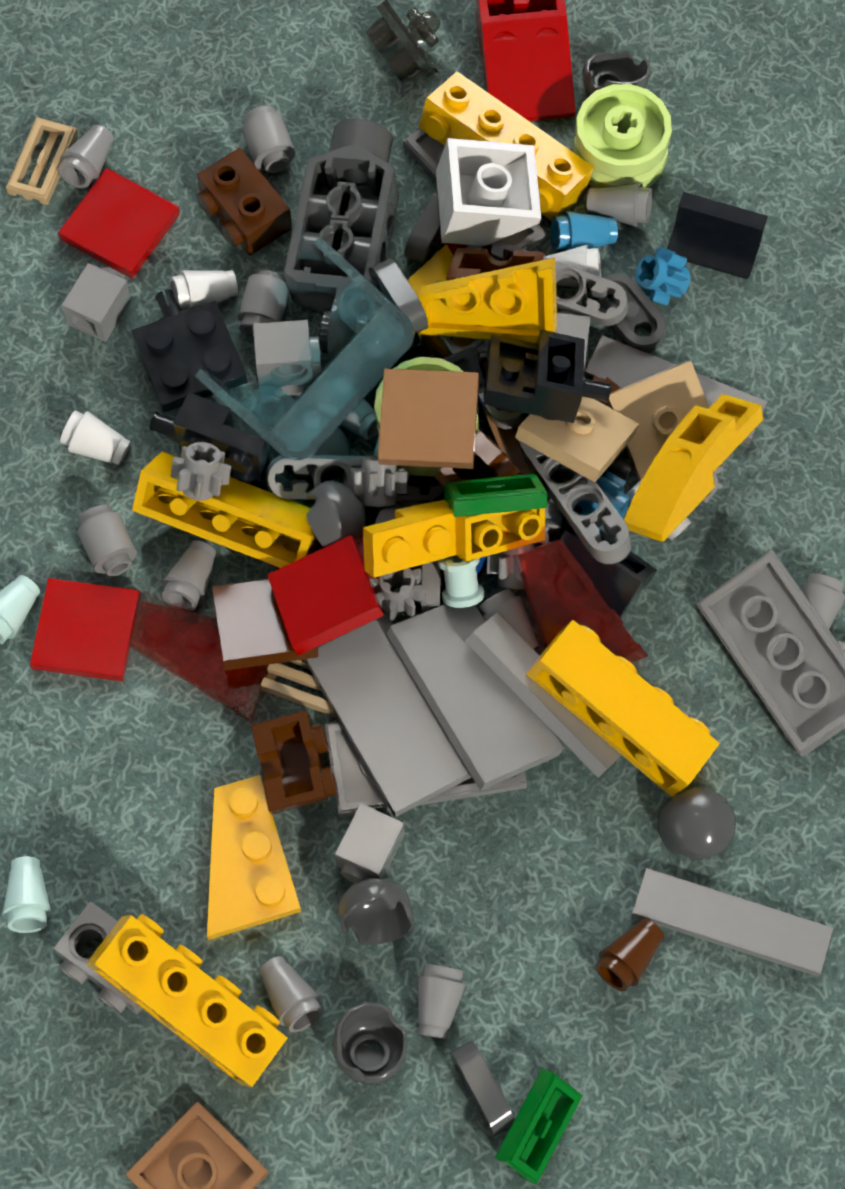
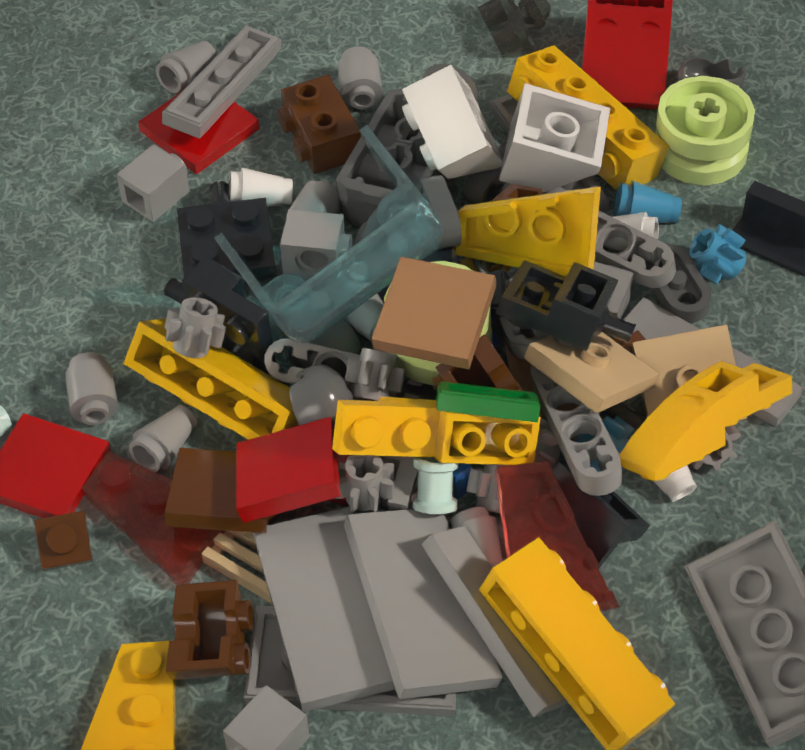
camera: 15 degrees right, 15 degrees down
(31, 191) = (145, 75): tan tile -> none
(94, 439) = (109, 297): white cone -> none
(129, 700) = (63, 540): none -> reddish brown plate
(130, 170) = (221, 82): none -> light grey tile
(386, 199) = (451, 125): none -> white slope
(625, 203) = (695, 186): light grey cone -> none

